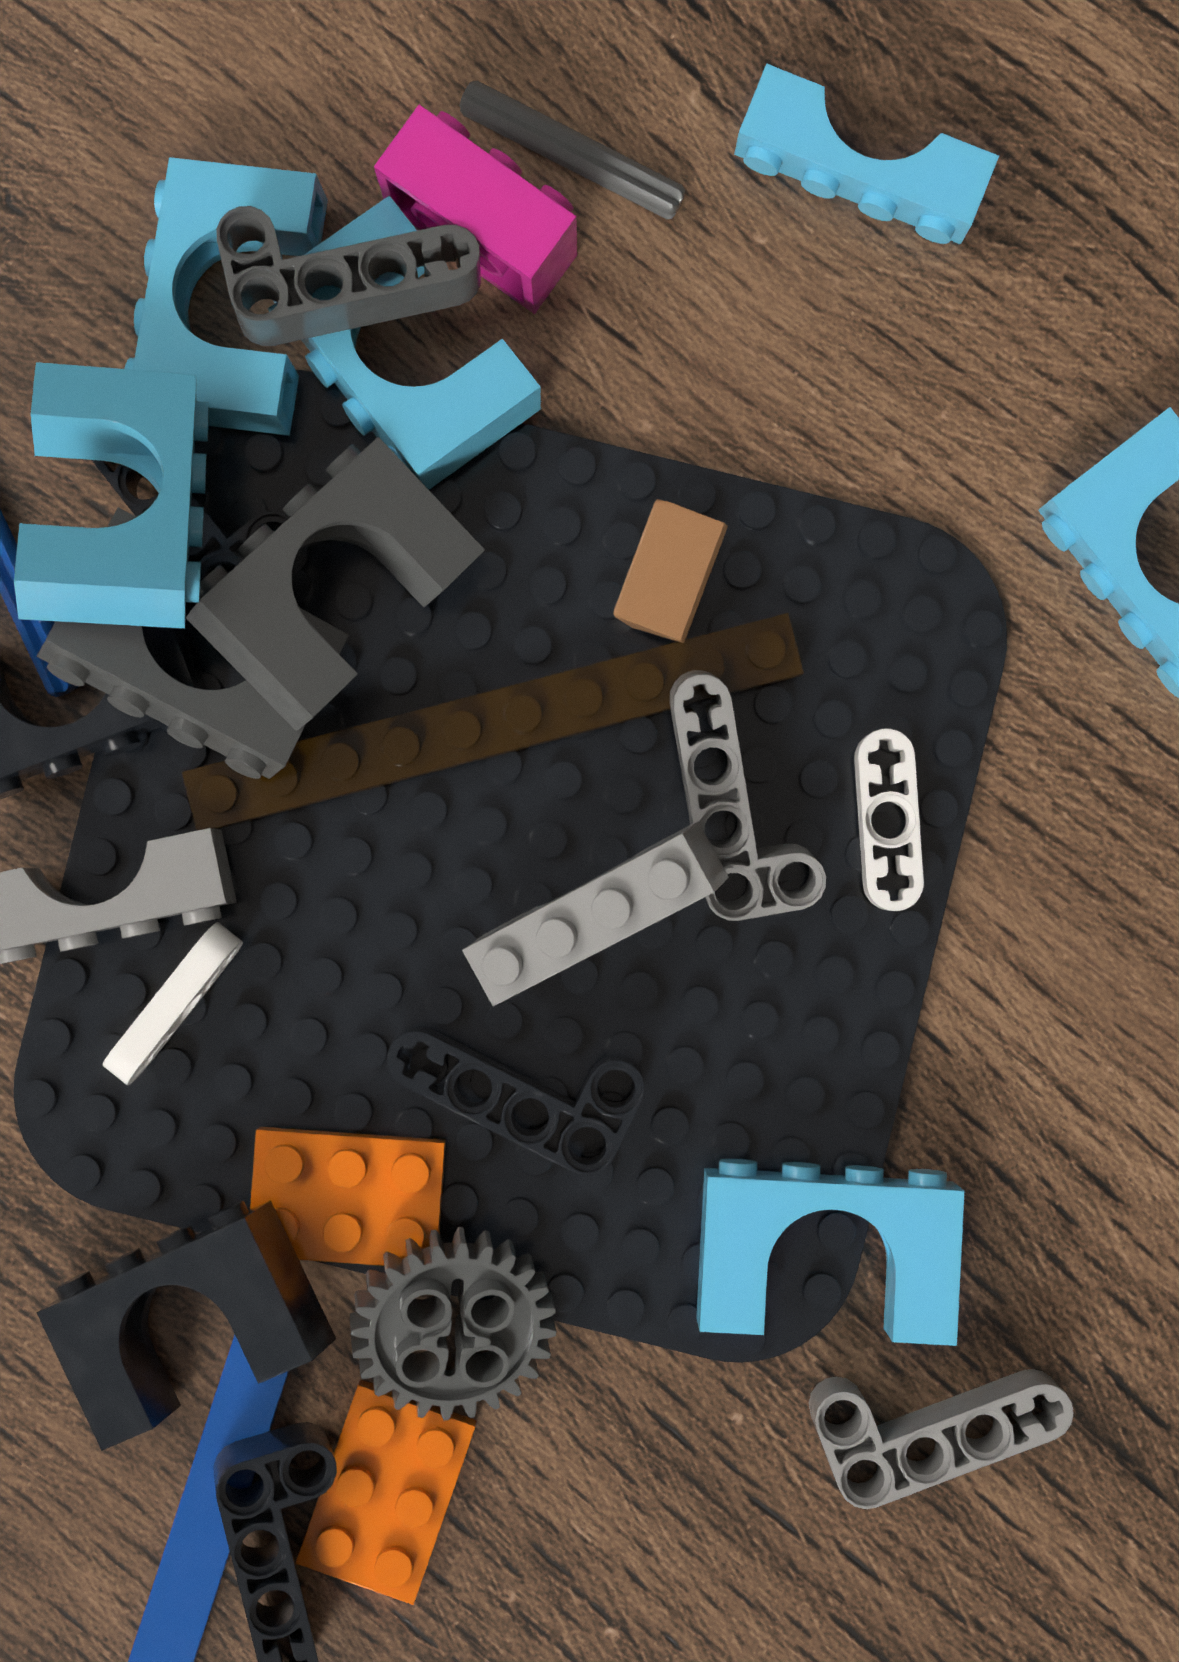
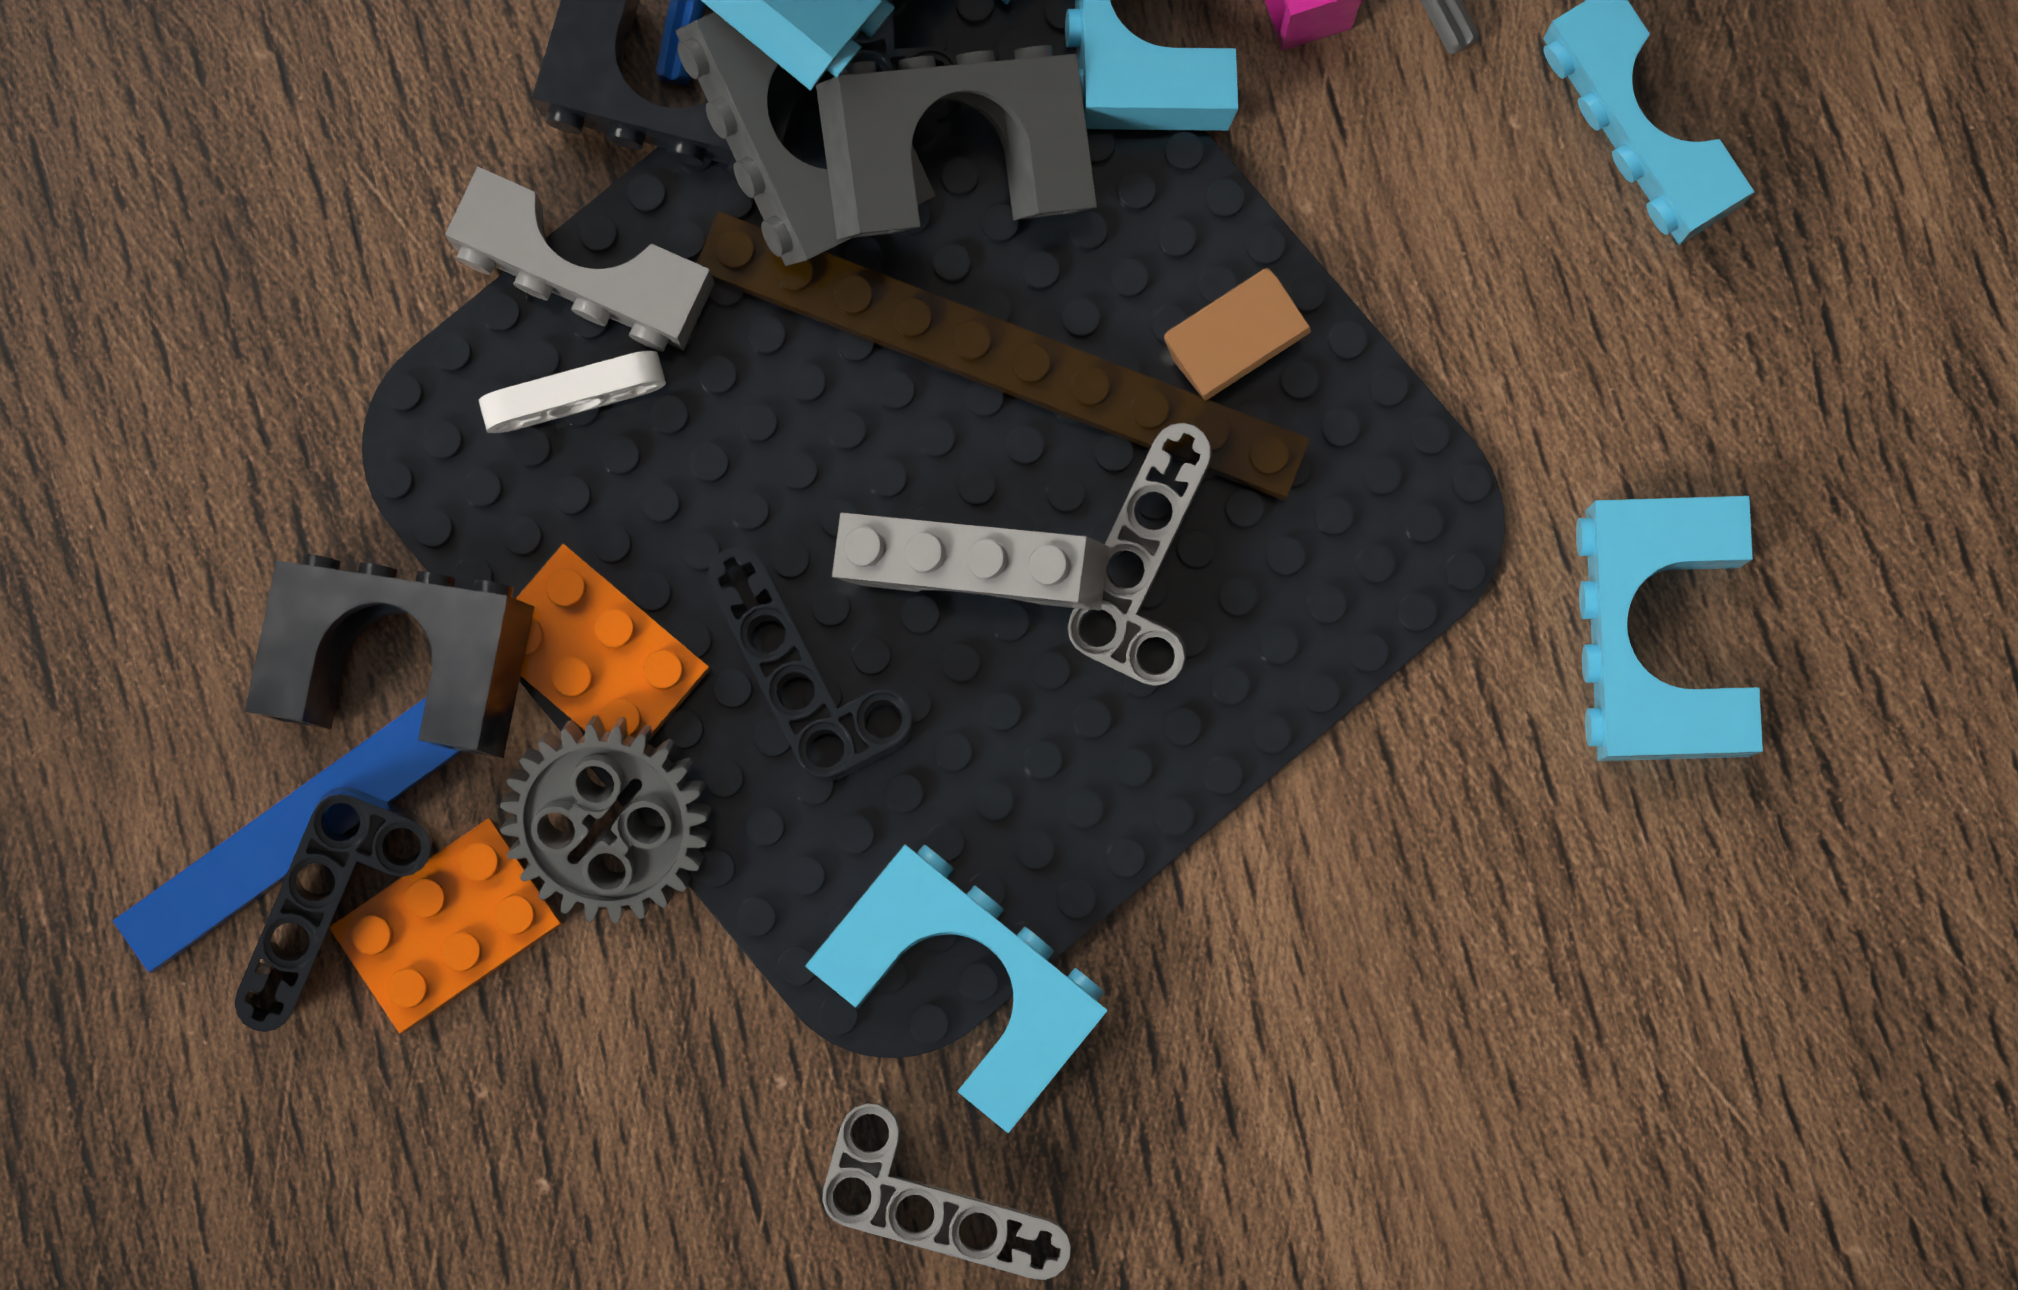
camera: 35 degrees right, 5 degrees down
(871, 774) = (1280, 620): white beam -> none

